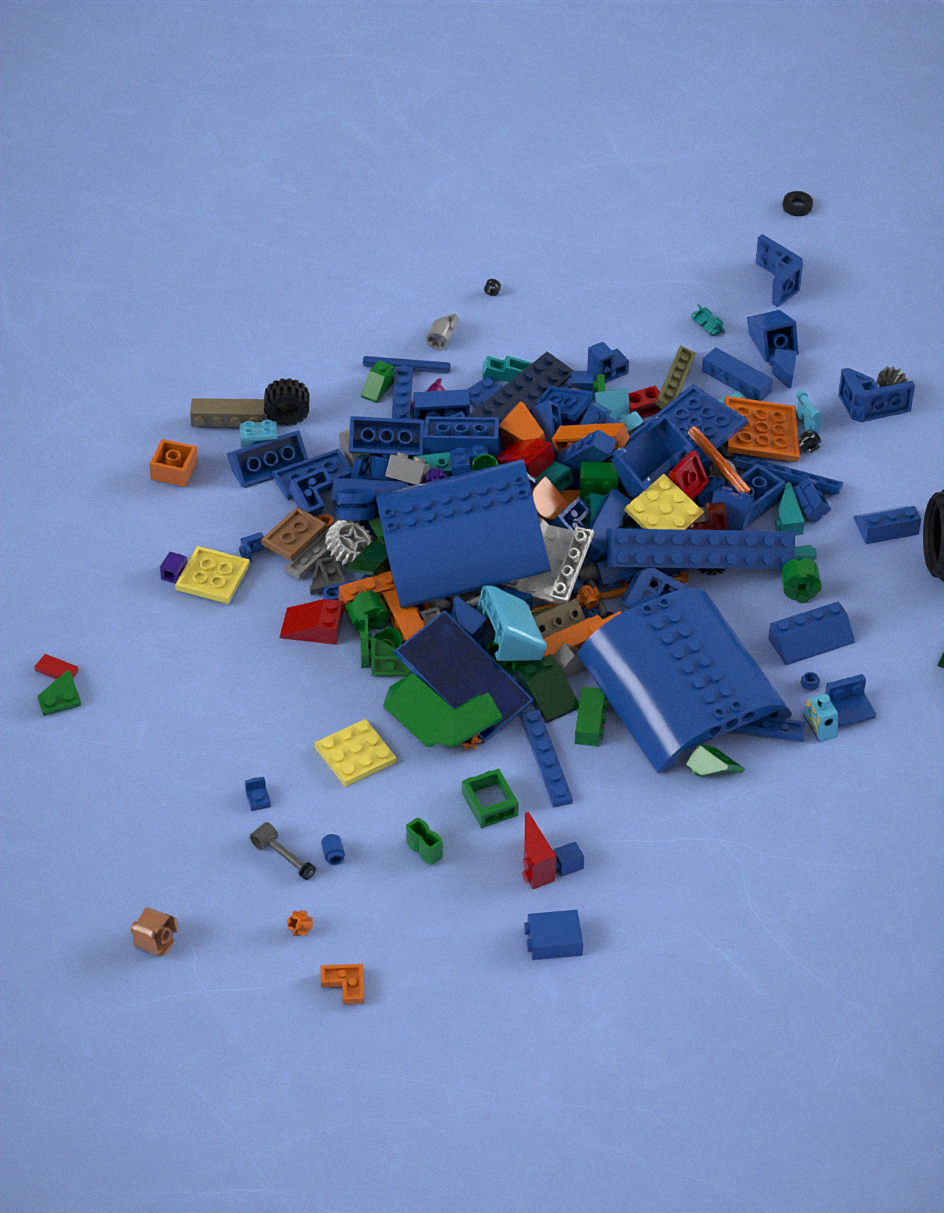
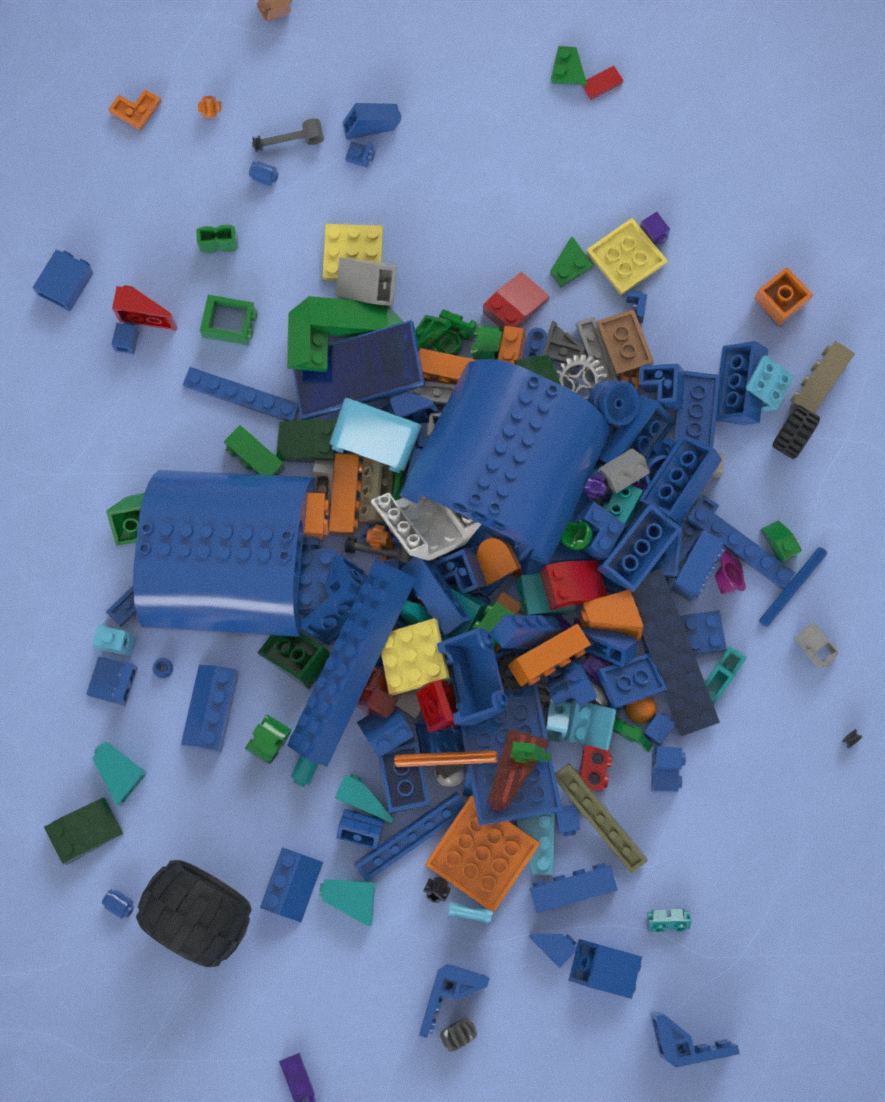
camera: 125 degrees right, 30 degrees up
(222, 799) = (371, 119): none -> blue slope
(247, 608) = (570, 264): none -> green wing
(376, 713) = (366, 281): none -> light grey slope
(676, 398) = (527, 751): none -> green wing
(699, 413) = (511, 774): none -> clear red slope
(727, 596) = (296, 657): none -> dark green slope
(862, 483) = (350, 897): none -> teal slope
(912, 660) = (117, 771): none -> teal slope

